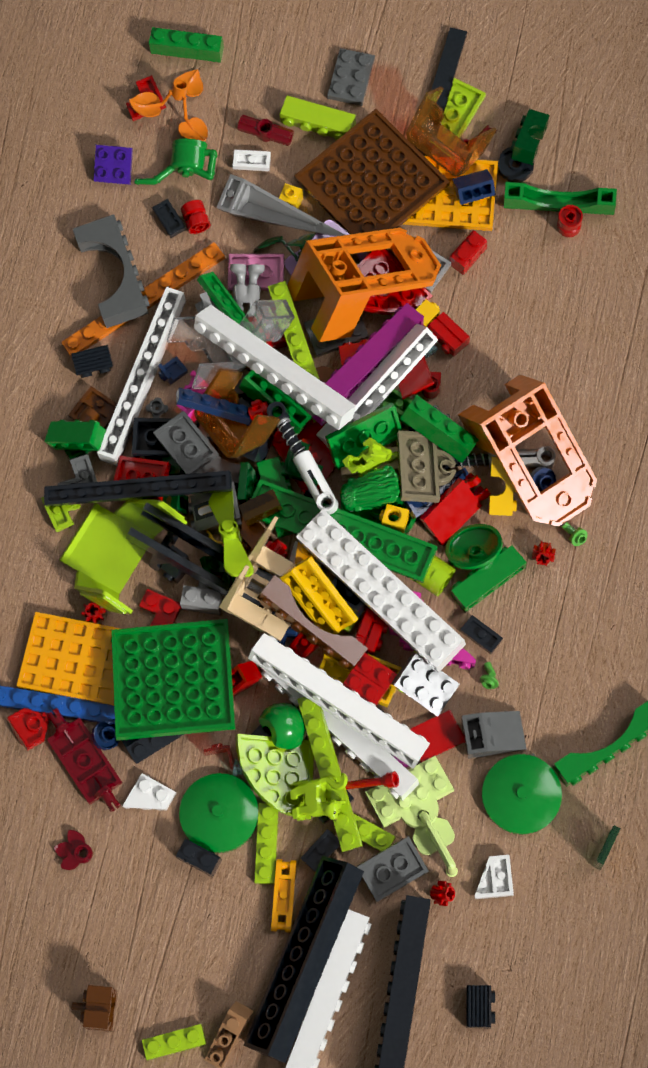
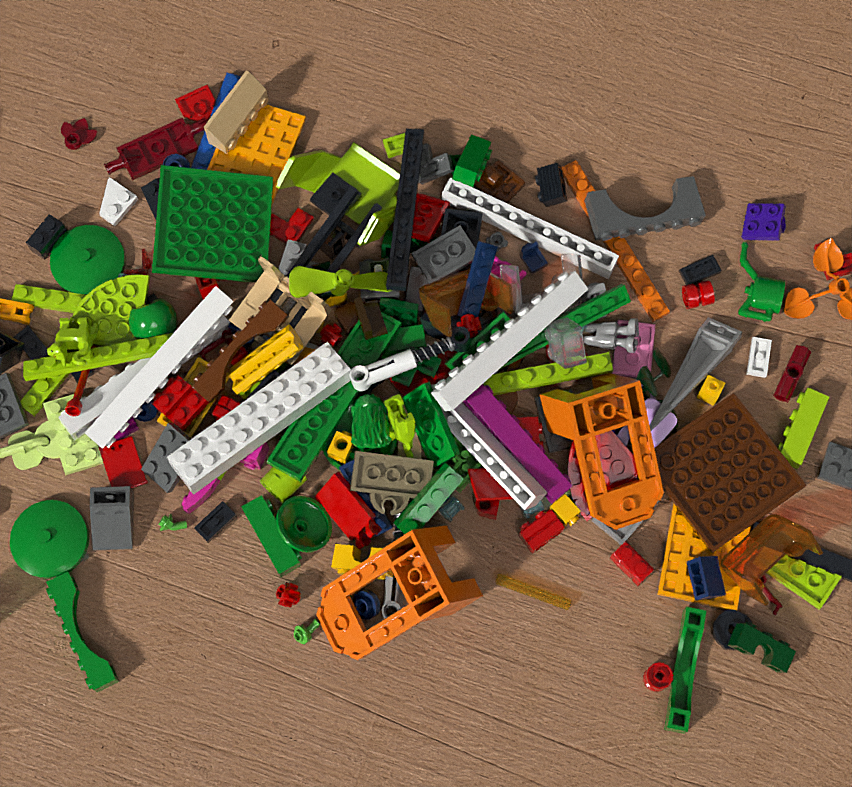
camera: 90 degrees right, 0 degrees up
(43, 676) = (236, 113): none -> tan slope
(124, 569) = (331, 193): none -> black plate
(505, 337) = (533, 591): none -> clear yellow axle

